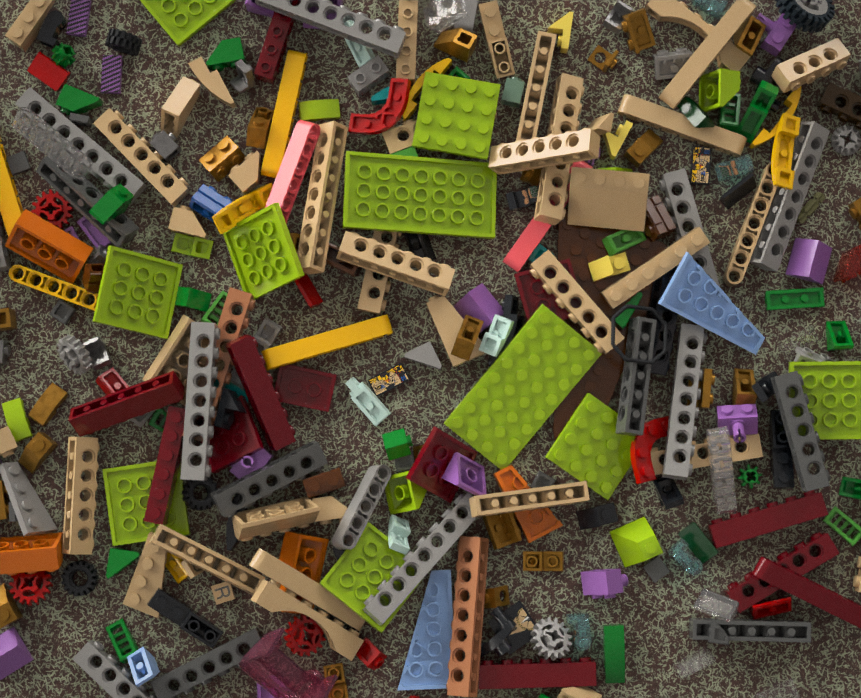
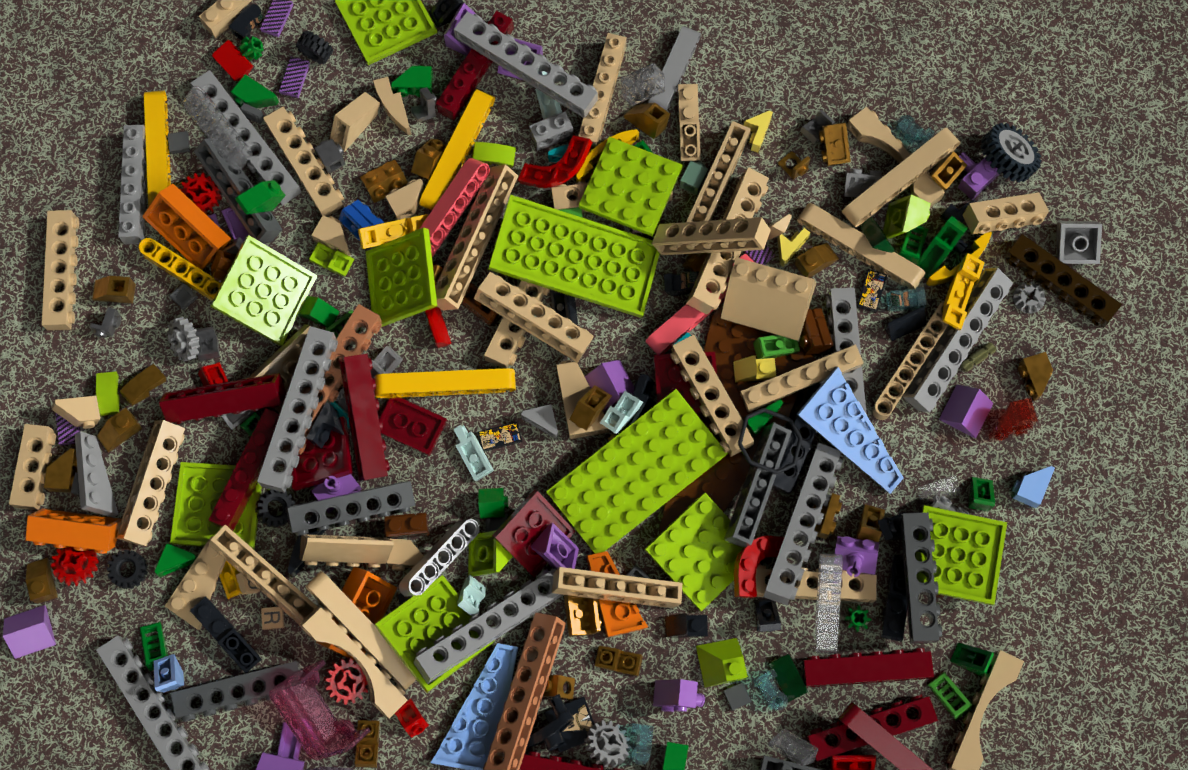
camera: 10 degrees right, 10 degrees down
(794, 299) = (943, 445): green plate -> none

